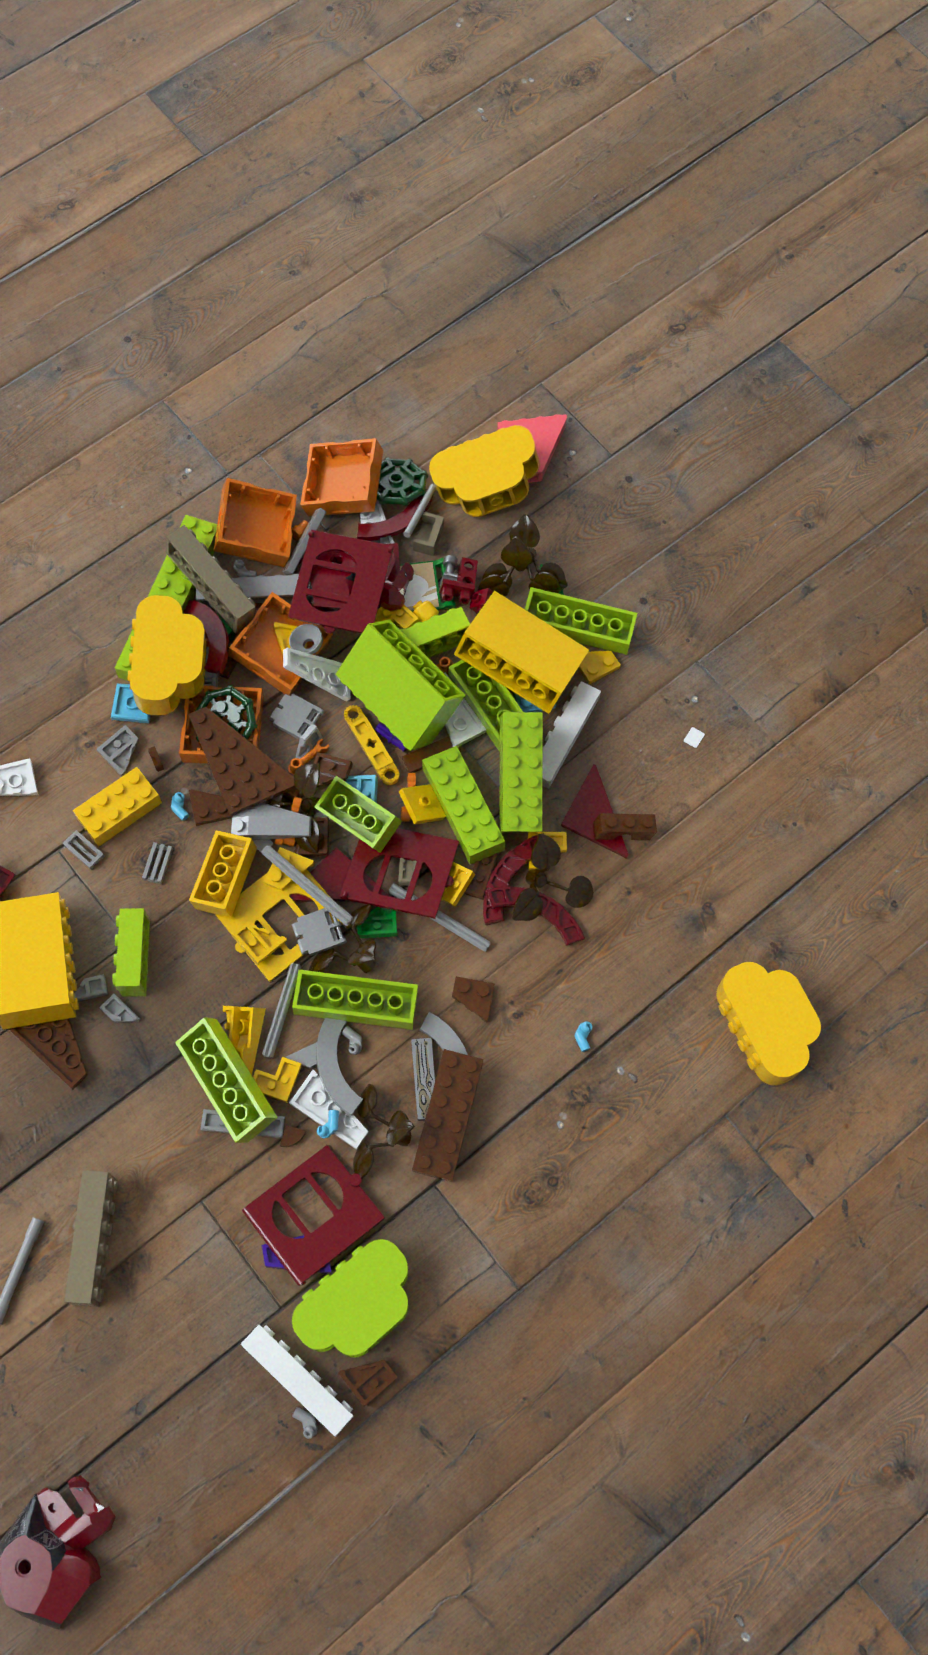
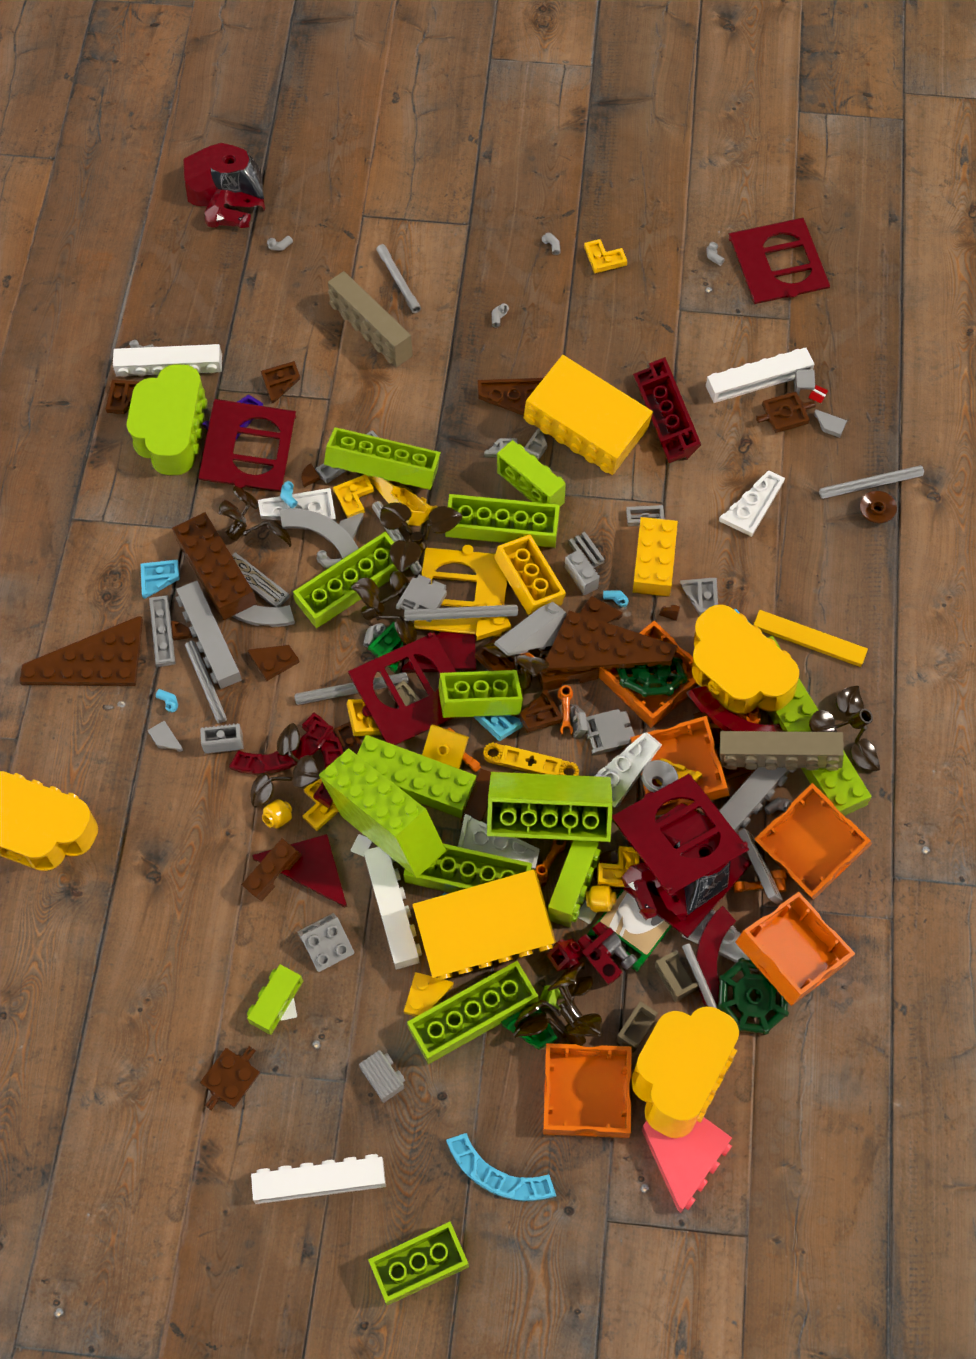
camera: 140 degrees right, 5 degrees down
(76, 1422) = (273, 245): none -> light grey arm
(87, 655) = (810, 638): none -> yellow tile
(153, 550) = (851, 703): none -> dark brown plant
(182, 844) = (582, 572): none -> light grey brick
(193, 940) = (504, 520): none -> lime brick
(222, 1259) = (280, 379): none -> reddish brown wing
(257, 941) = (458, 557): yellow wing -> none
(270, 1015) = (407, 553): none -> dark brown plant
(382, 947) = (373, 632): none -> light grey arm
(485, 530) = (637, 1026): none -> dark tan panel
(497, 1155) = (158, 575): none -> medium azure wing
(504, 1062) = (208, 634): none -> light grey brick
(519, 590) = (551, 996): none -> lime tile
(522, 1090) = (180, 631): none -> reddish brown tile
(536, 1104) = (162, 631): none -> light grey tile
(541, 1025) = (205, 682): none -> light grey axle
(547, 798) = (361, 843): none -> white sticker
(560, 516) = (587, 1091): none -> orange tile
(573, 959) = (221, 738): none -> light grey brick
(583, 866) = (277, 813): none -> yellow head
(607, 1124) = (98, 660): none -> reddish brown wing
(612, 1007) = (164, 737): none -> light grey tile
(630, 754) = (326, 942): none -> light grey bracket
(657, 527) = (494, 1180): none -> medium azure tile
(672, 638) = (382, 1076): none -> light grey brick
(699, 744) = (274, 999): none -> lime brick
(748, 519) = (418, 1263): none -> lime brick
(767, 615) = (318, 1180): none -> white brick
(771, 724) = (230, 1078): none -> reddish brown plate

